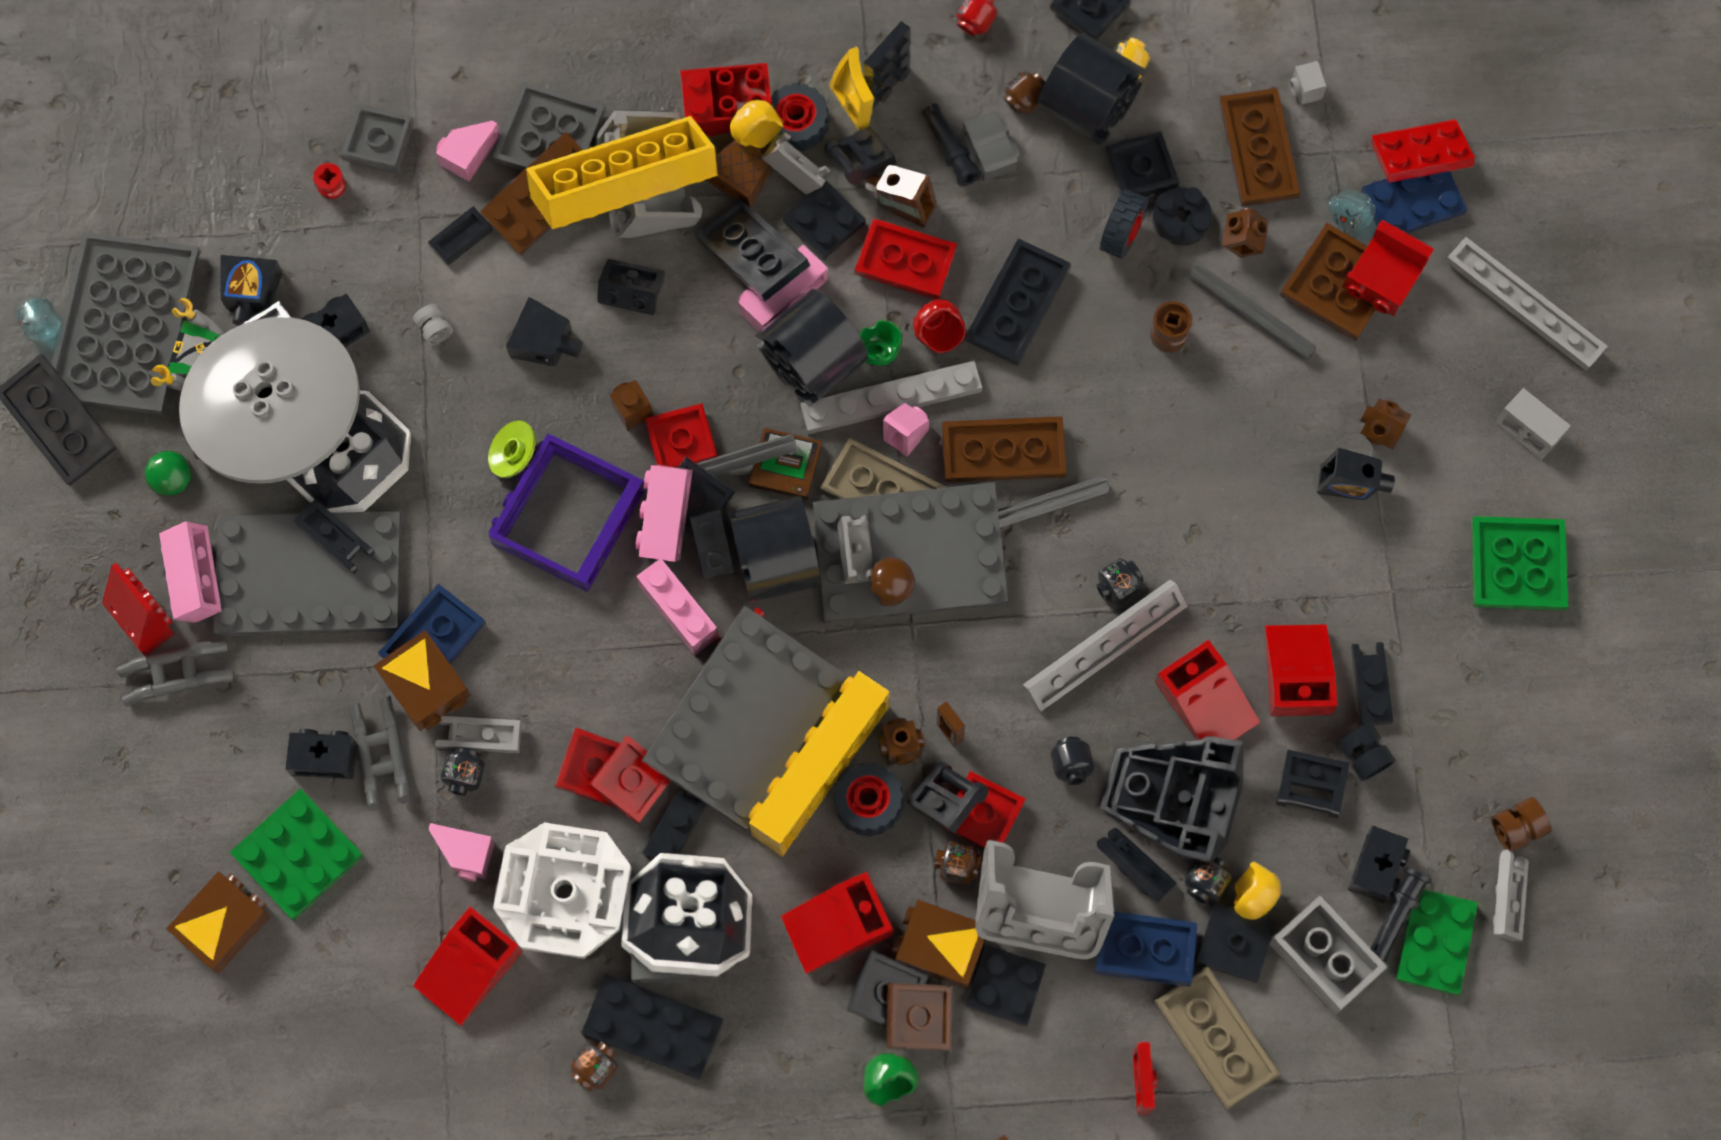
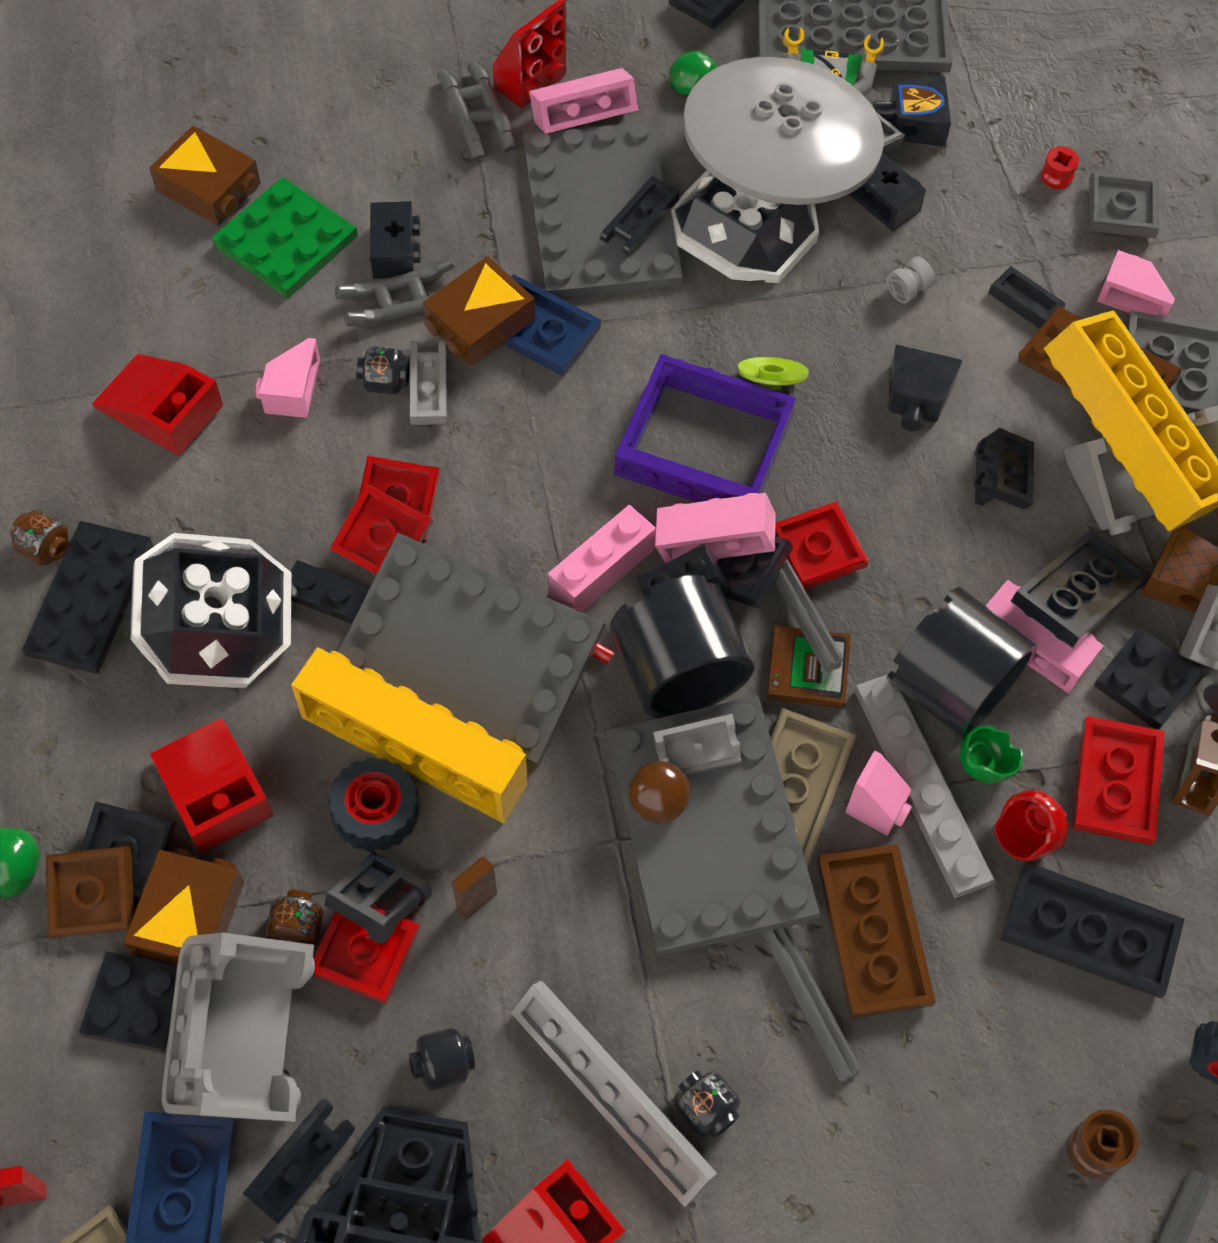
camera: 80 degrees right, 10 degrees down
(539, 866) = (233, 444): white piece -> none
(630, 404) = (851, 483): reddish brown brick -> none
(898, 752) = (450, 833): reddish brown brick -> none

